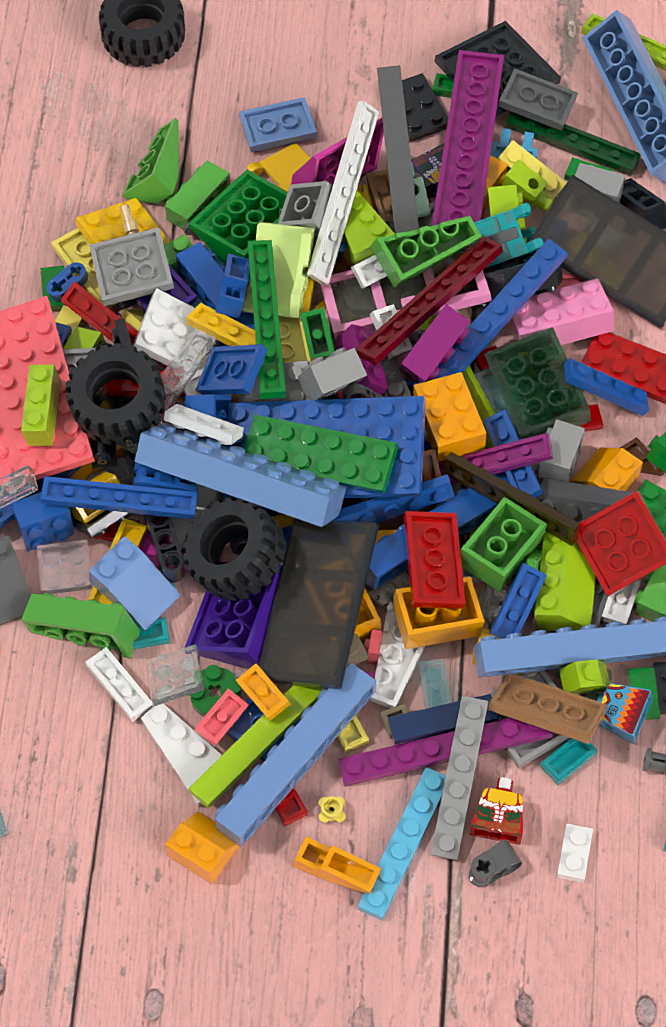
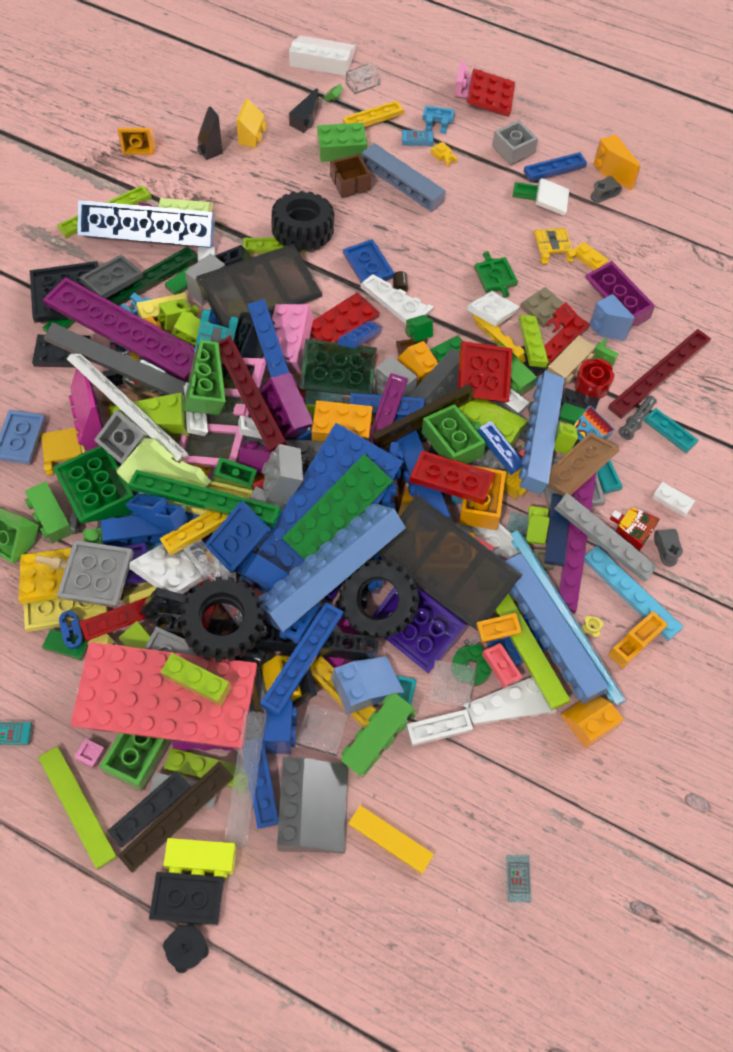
camera: 70 degrees left, 0 degrees up
(203, 424) = (277, 571): white plate -> none
(322, 770) = (519, 542): none -> medium azure plate
(435, 692) = (537, 525): none -> lime slope
(645, 179) = (204, 251): none -> white tile

